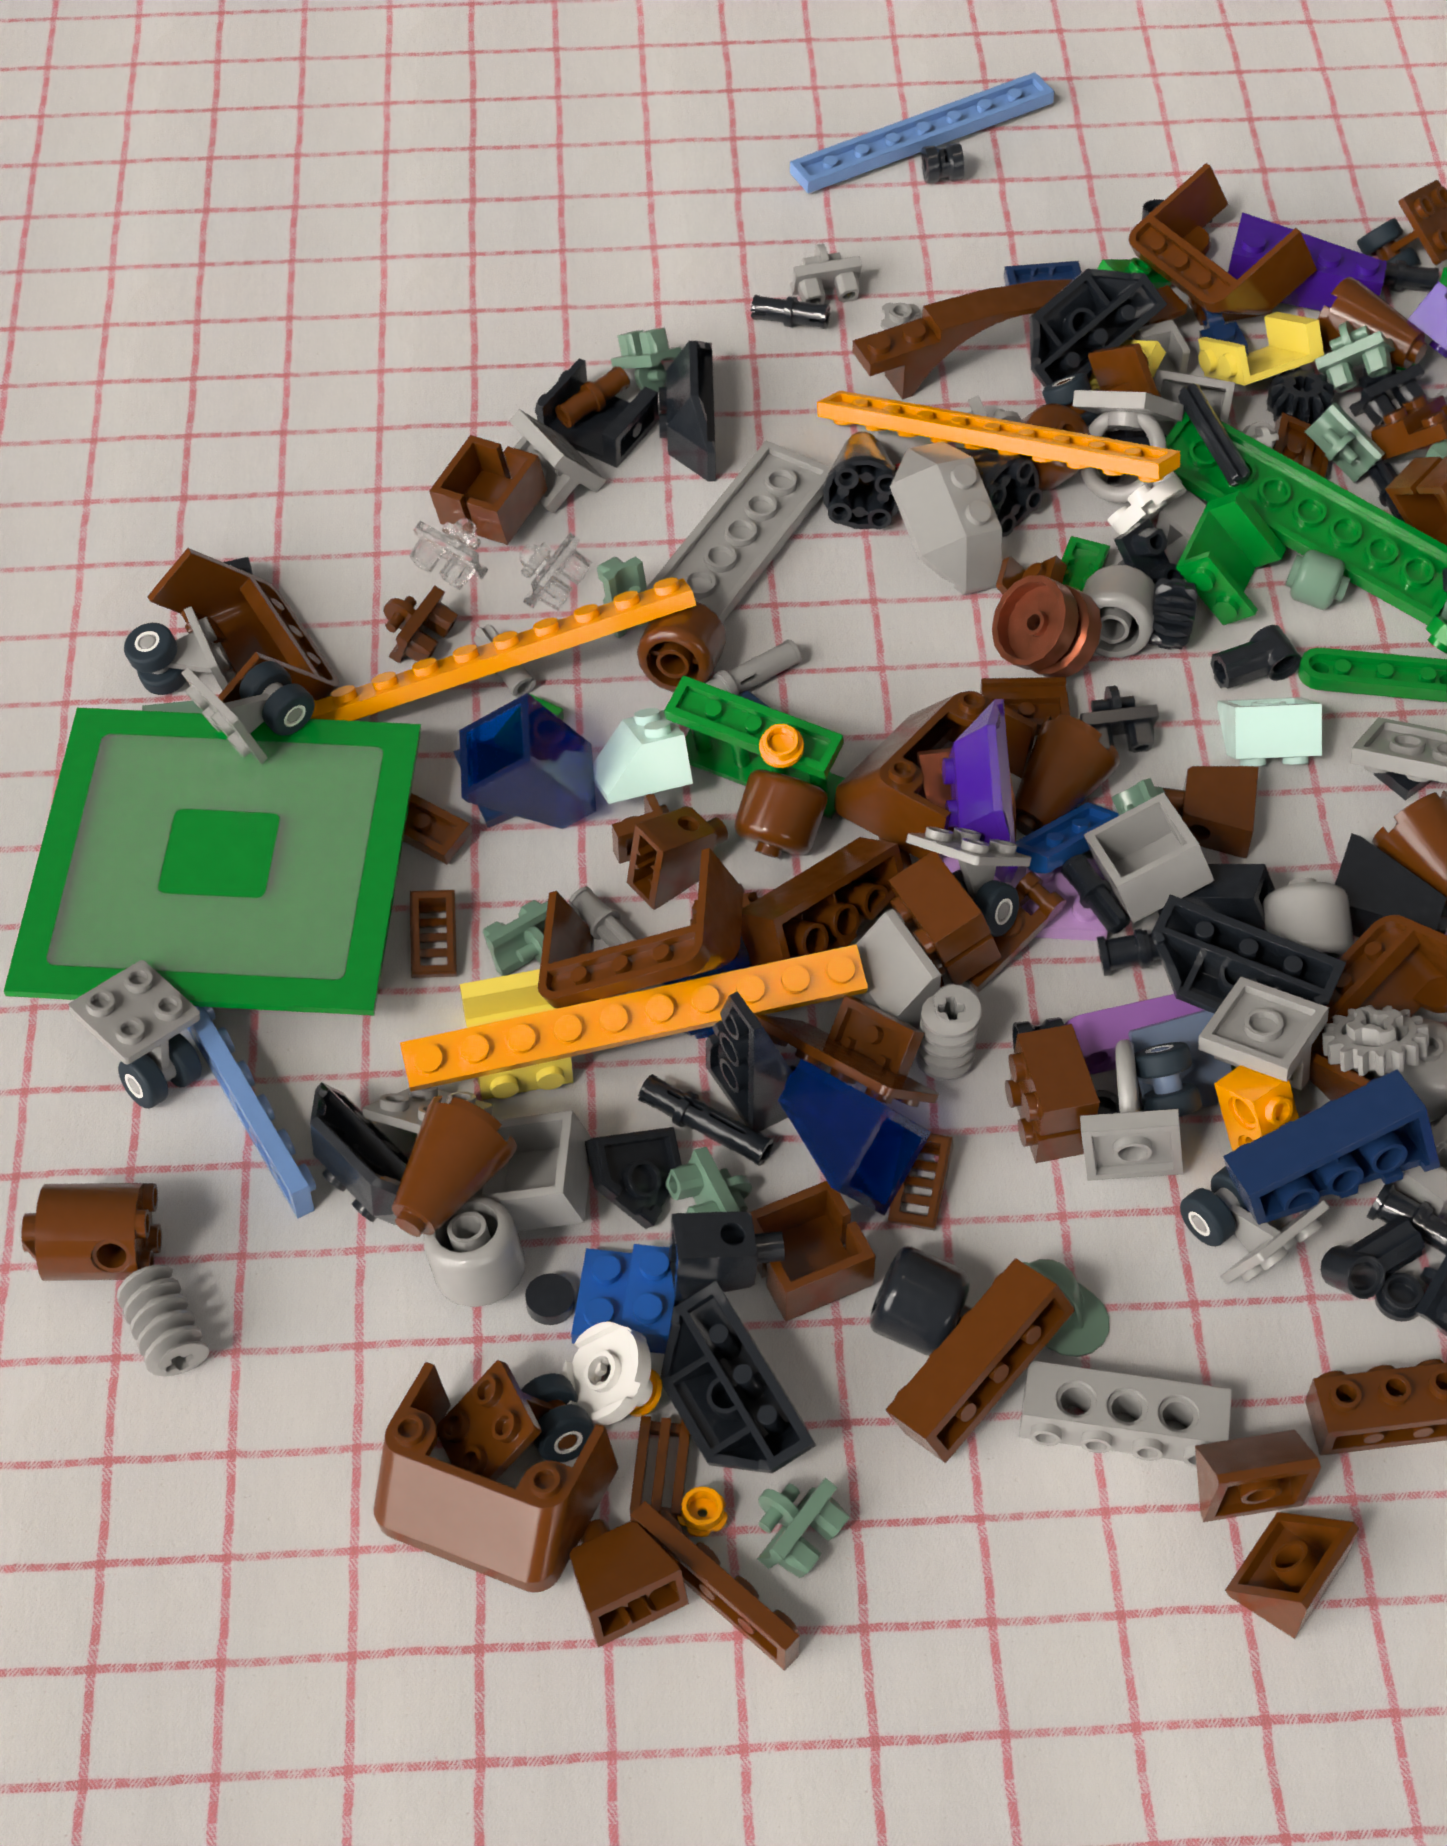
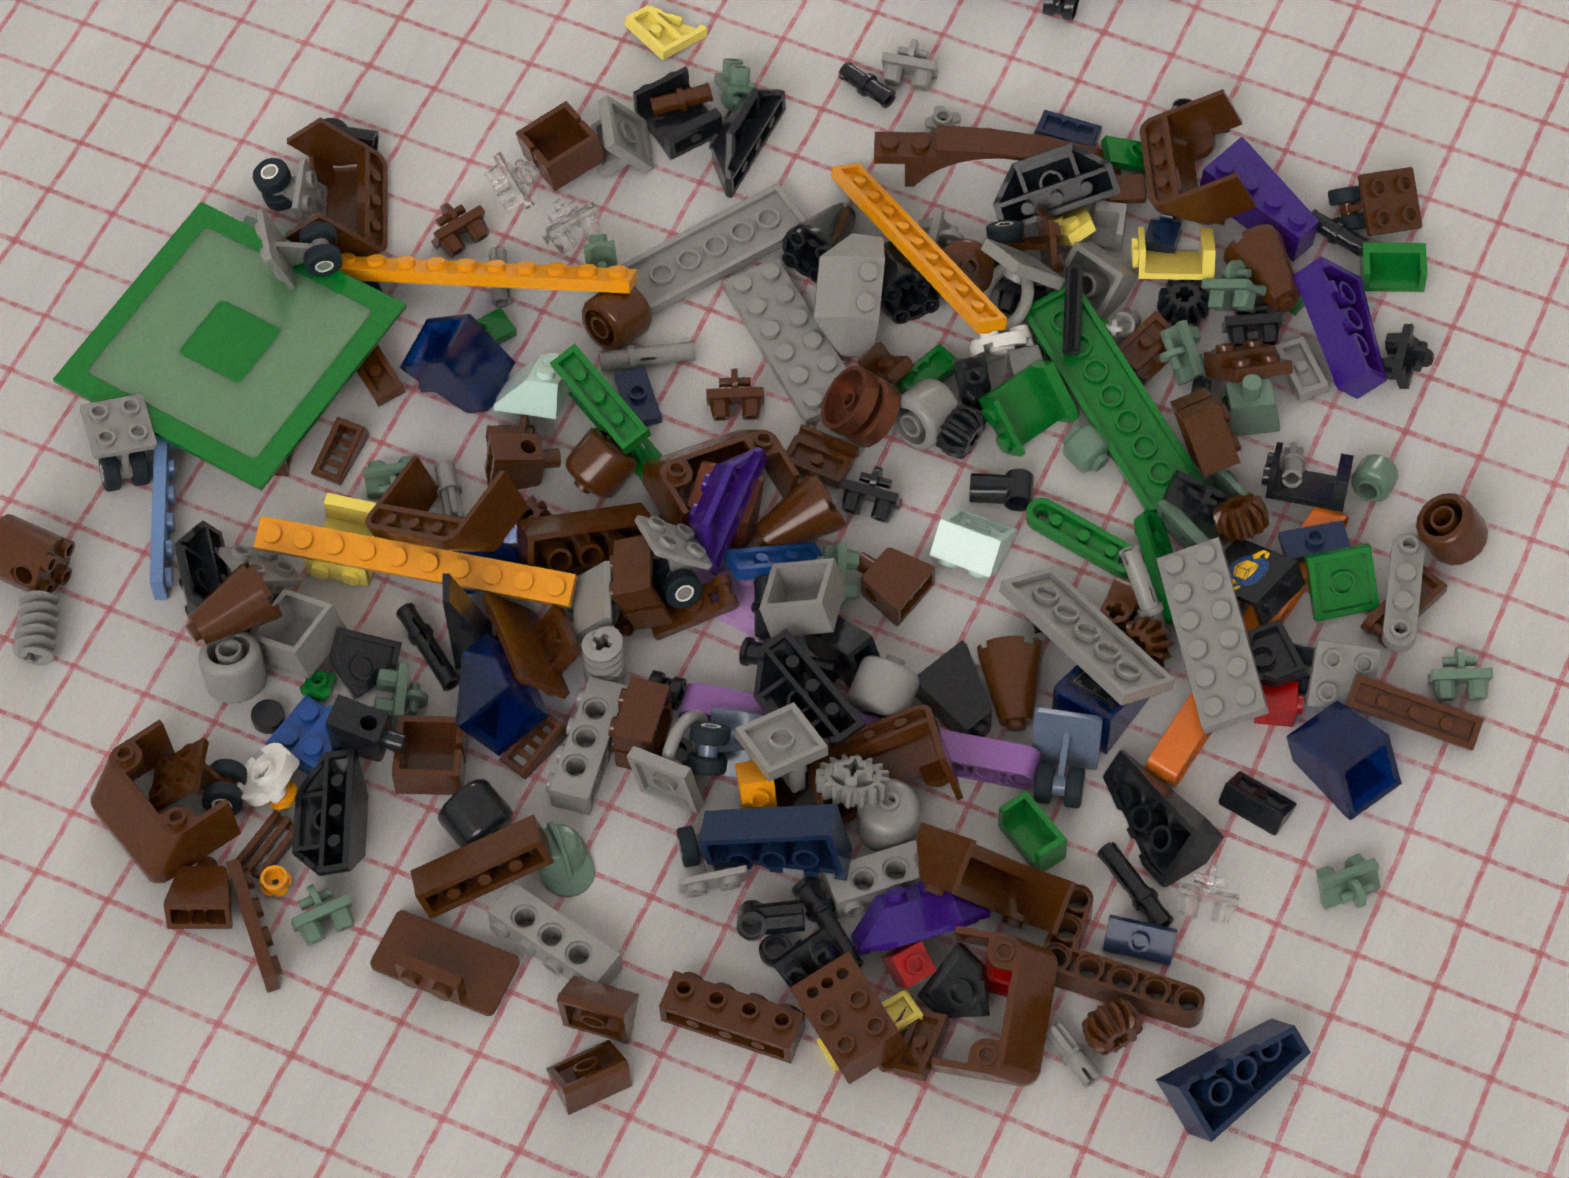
camera: 30 degrees right, 5 degrees up
(518, 339) = (663, 31): none -> light yellow wing
(595, 1237) = (319, 685): none -> green plate
(781, 746) = (603, 420): light orange plate -> none
(877, 674) = (721, 398): none -> reddish brown hips
(892, 599) = (786, 335): none -> light grey plate
(985, 1086) = (580, 791): none -> light grey brick
(1000, 1513) = (445, 963): none -> reddish brown bracket

